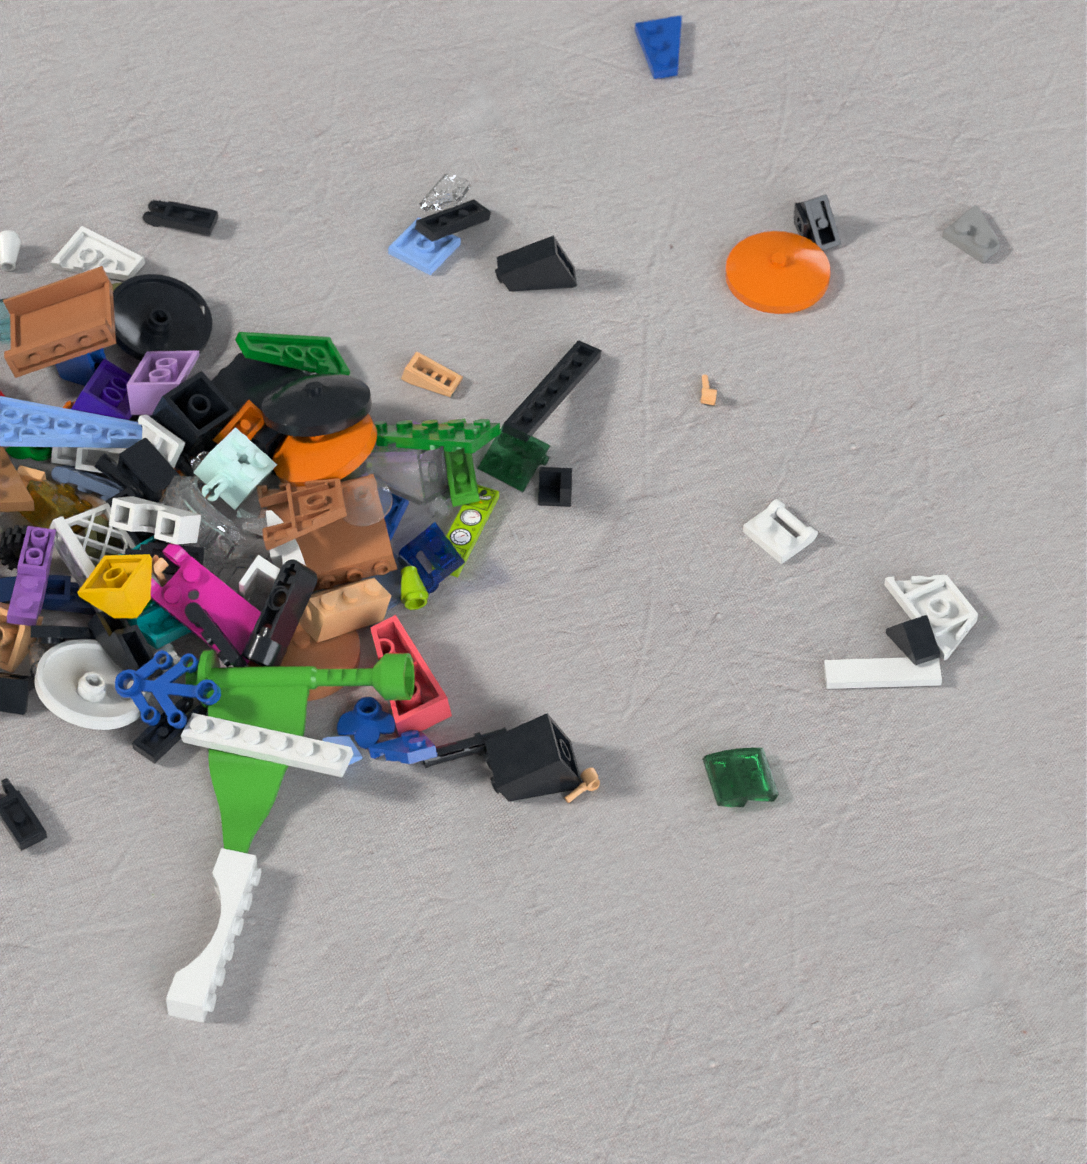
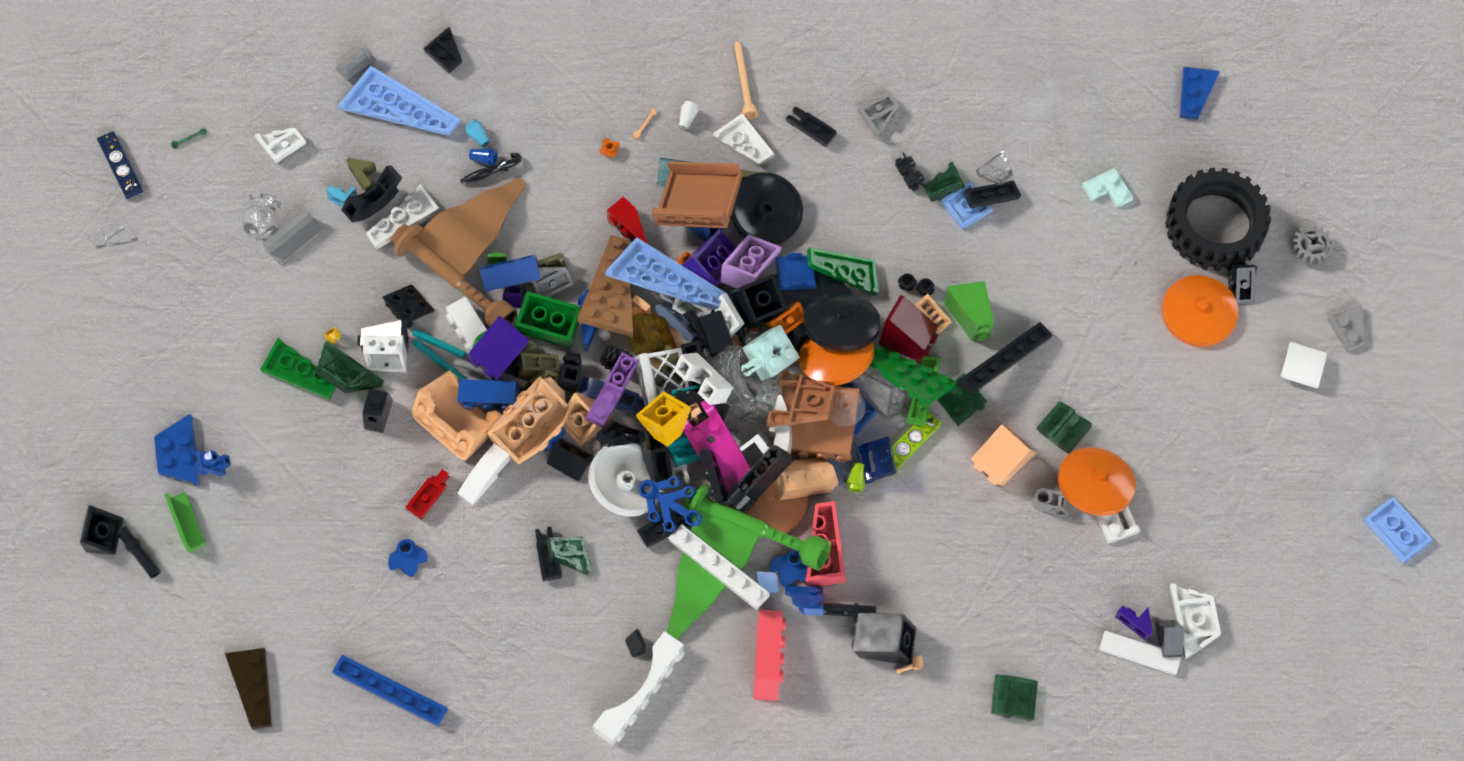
camera: 20 degrees right, 15 degrees up
(47, 798) = (570, 552): none -> clear green wing
(88, 219) = (749, 109): none -> light nougat piece
(186, 882) = (635, 643): none -> black slope
(231, 372) = (794, 272): none -> blue piece
(265, 177) = (879, 113): none -> light grey wing
(328, 222) = (906, 166): none -> black hinge
(382, 231) = (944, 183): none -> clear green wing
(382, 834) = (769, 654): none -> coral wedge
(383, 349) = (907, 278): none -> black plate
(409, 346) = (925, 283): none -> black plate
(409, 393) = (909, 330): none -> dark red slope
(481, 349) = (971, 309): none -> bright green slope
(536, 267) = (1034, 253): black slope -> none
(555, 486) = (979, 432): black panel -> none
(598, 500) = (1002, 455): none -> light nougat slope
(599, 170) = (1110, 184): none -> light aqua plate
(663, 449) = (1064, 427): none -> clear green slope
(684, 535) = (1053, 502): none -> light grey piece
(708, 395) = (1111, 396): light nougat hand -> none
(734, 492) = (1096, 481): none -> orange dish
(753, 126) = (1225, 185): none -> black tyre
(865, 639) = (1140, 625): none -> dark purple slope
(885, 159) = (1321, 245): none -> light grey gear
(936, 289) = (1303, 365): none -> white slope

